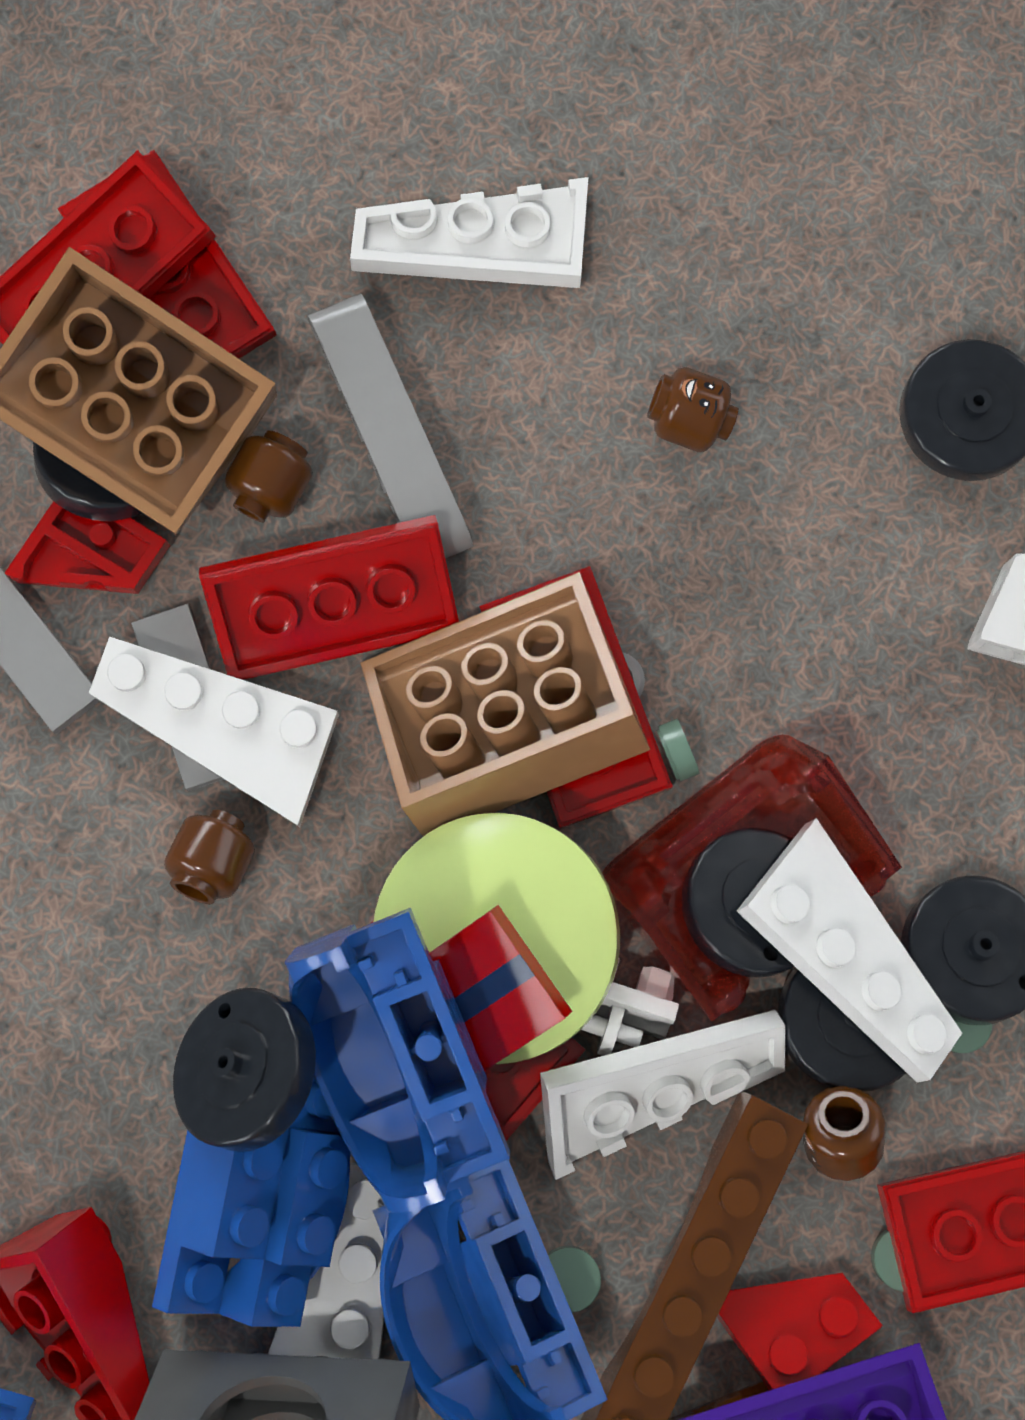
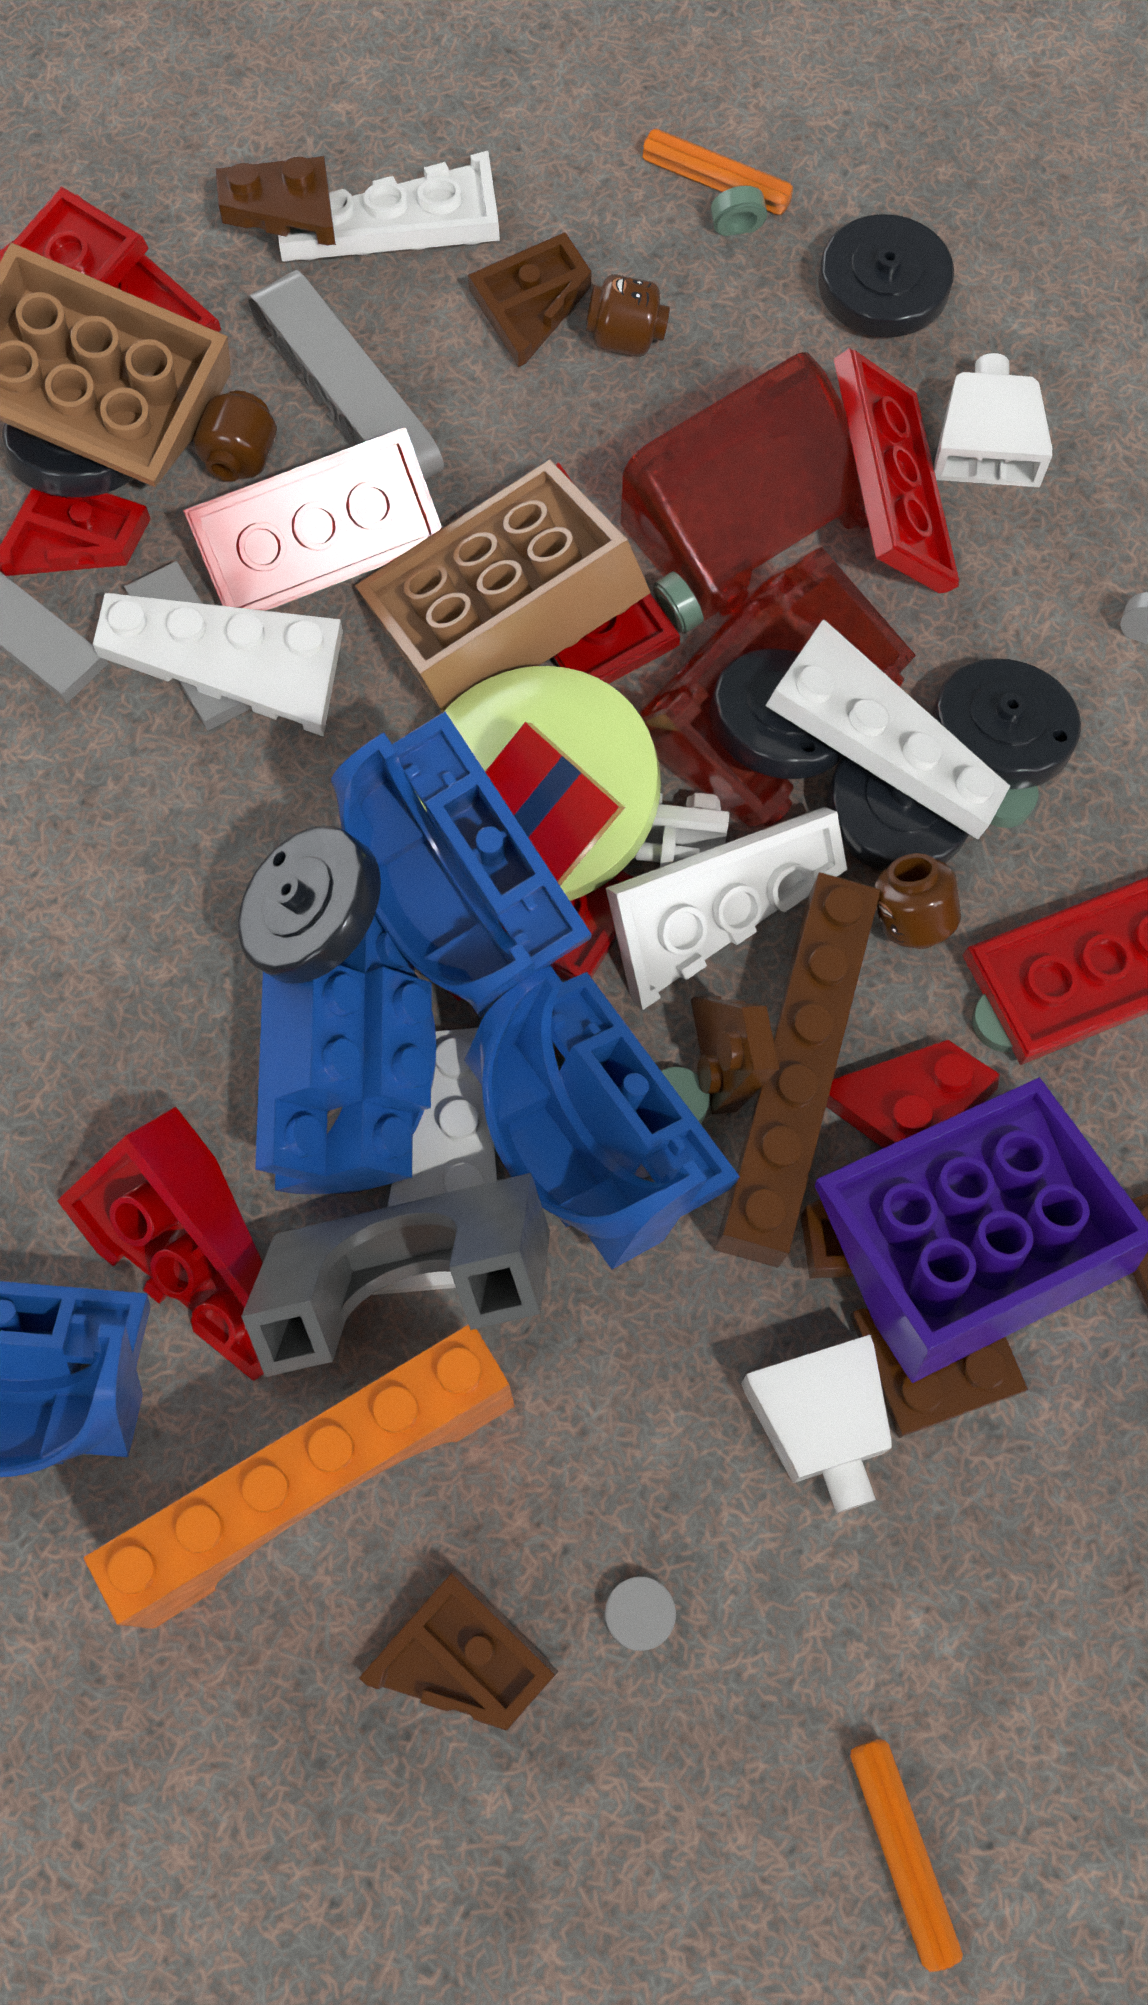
camera: 10 degrees left, 10 degrees down
(209, 857) = (238, 774): reddish brown head -> none
(359, 204) = (278, 197): none -> reddish brown wing
(600, 359) = (531, 293): none -> reddish brown wing
(632, 1253) = (734, 1050): none -> reddish brown wing
(780, 644) = (744, 482): none -> clear red windscreen
(823, 245) = (714, 169): none -> orange axle
(835, 303) = (738, 211): none -> sand green tile
(928, 654) = (896, 473): none -> red tile

